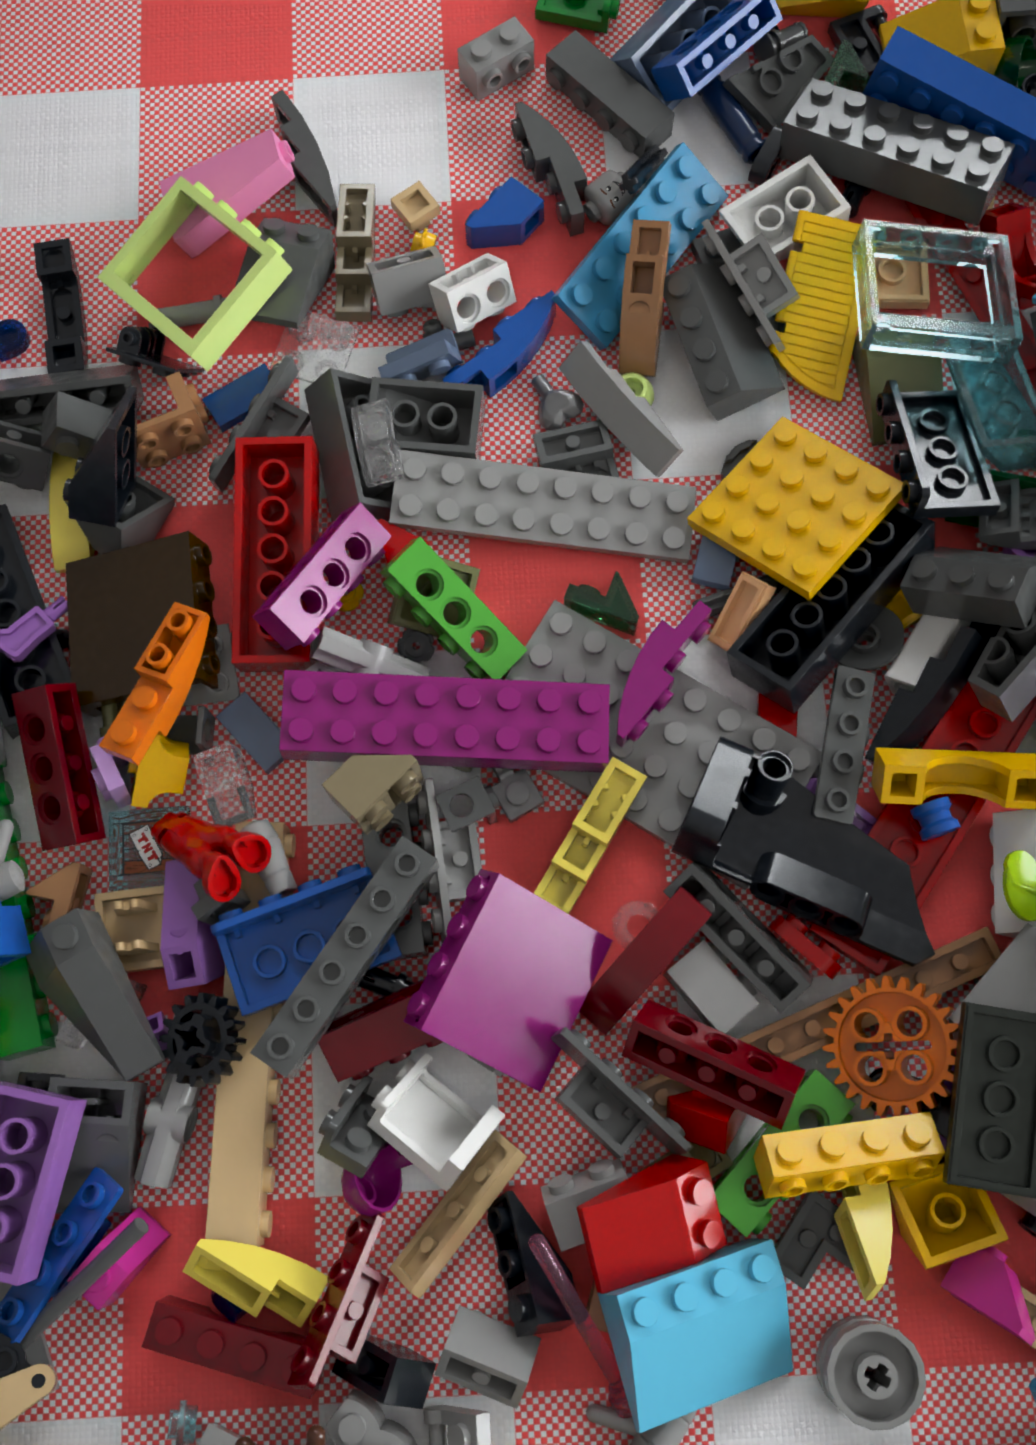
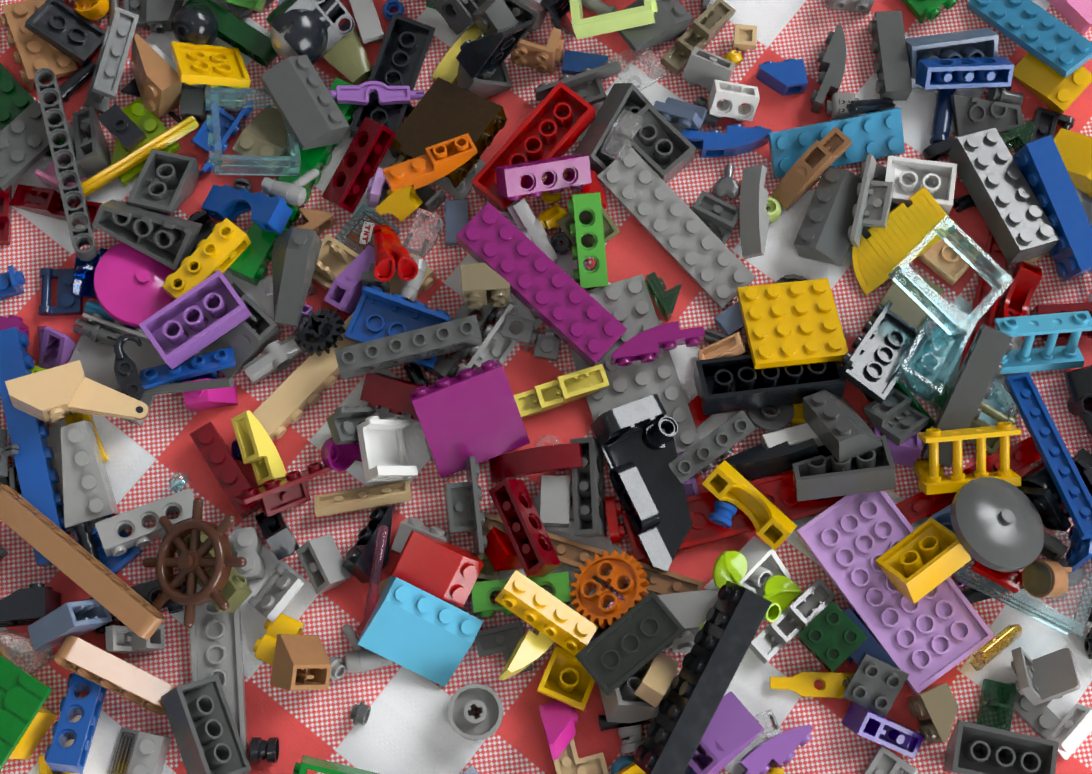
camera: 35 degrees right, 0 degrees up
(373, 621) = (550, 216): none -> yellow plate

